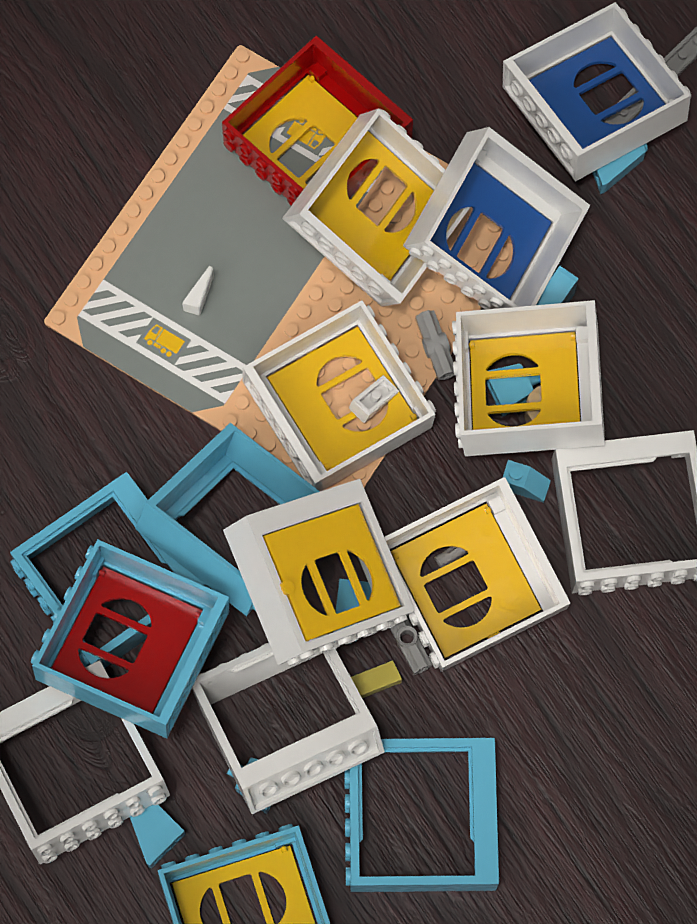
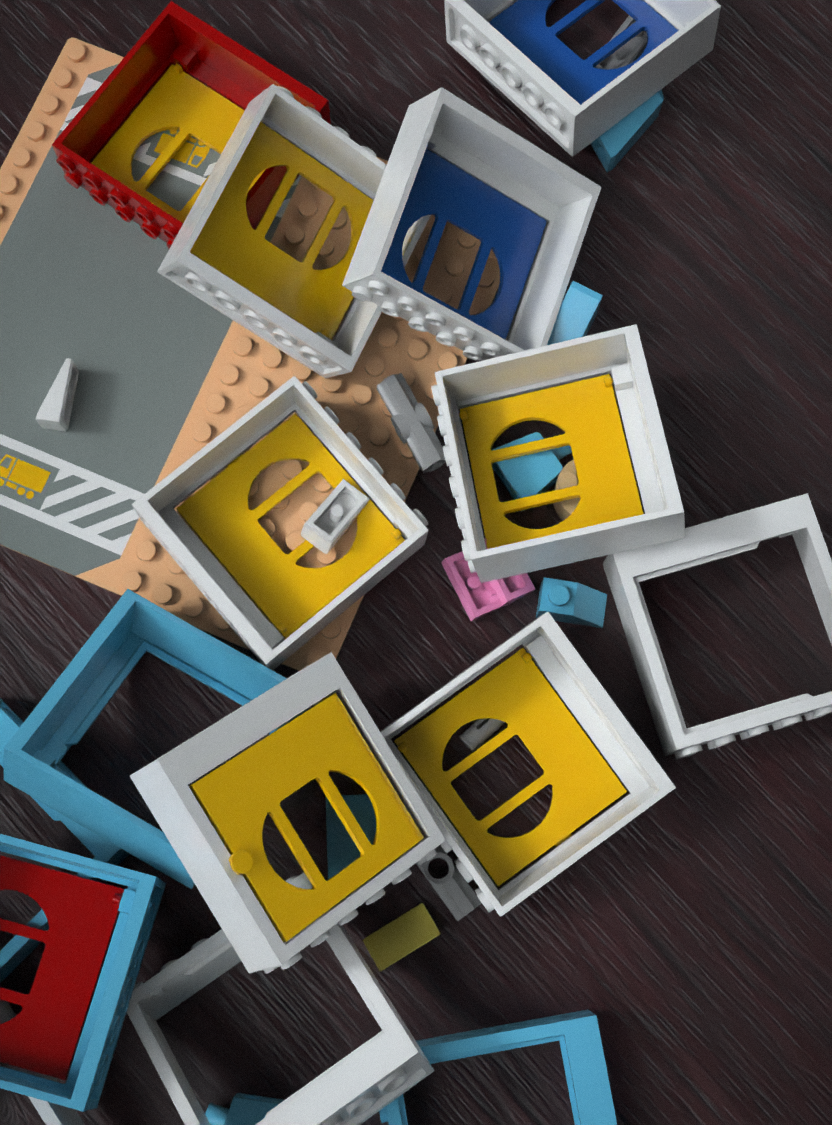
camera: 10 degrees left, 5 degrees up
(468, 467) = (483, 597): none -> bright pink slope

